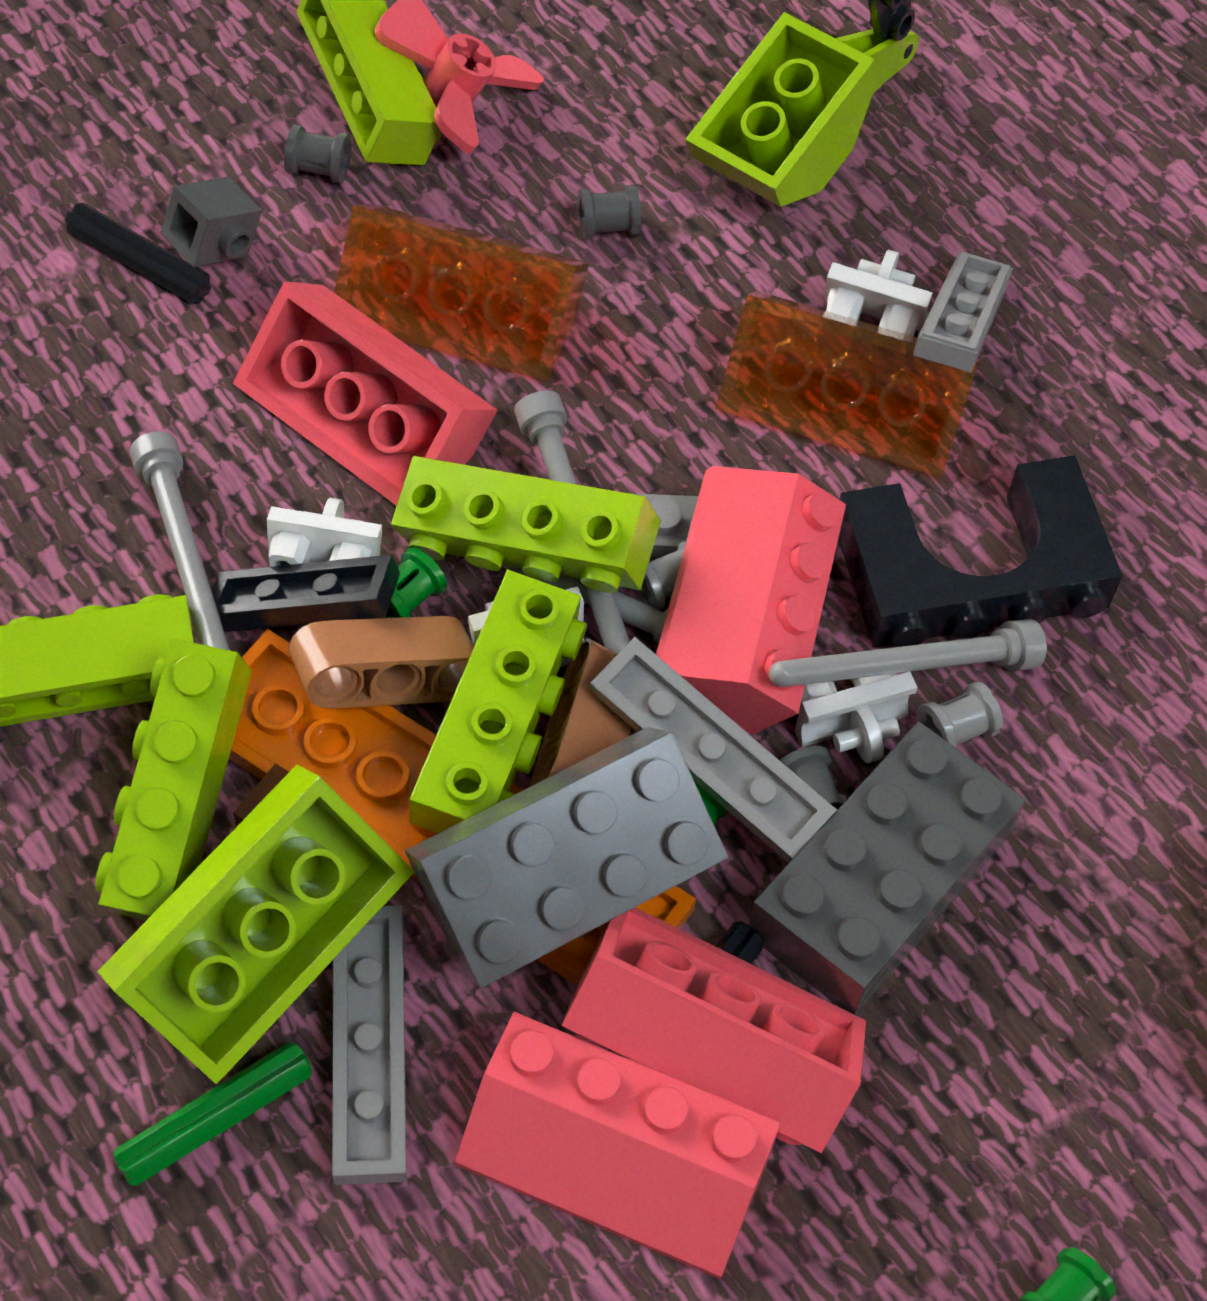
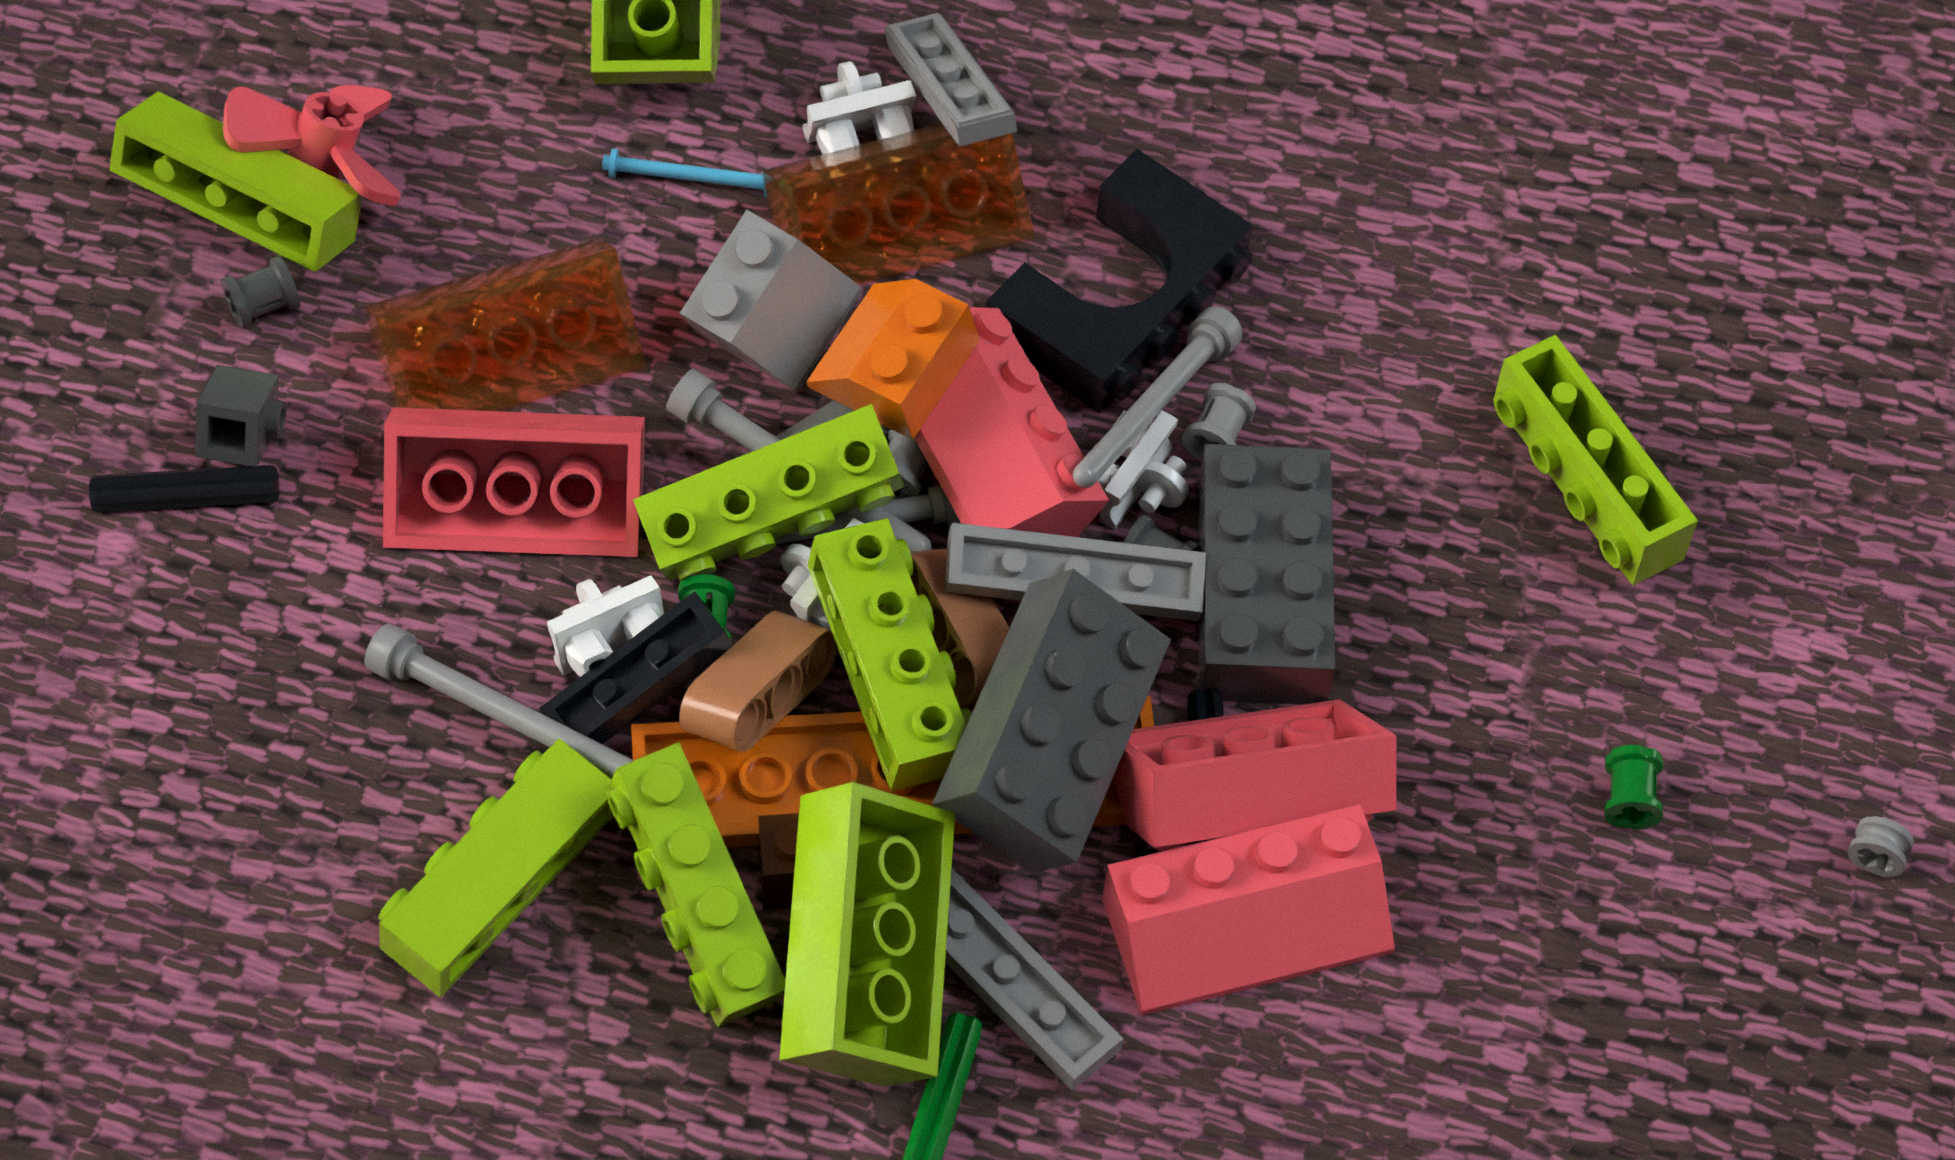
camera: 40 degrees left, 0 degrees up
(609, 212) = (566, 180): dark grey bush -> none
(660, 224) = (615, 164): none -> medium azure axle
(670, 385) = (770, 301): none -> light grey slope
(718, 484) = (898, 353): none -> orange slope

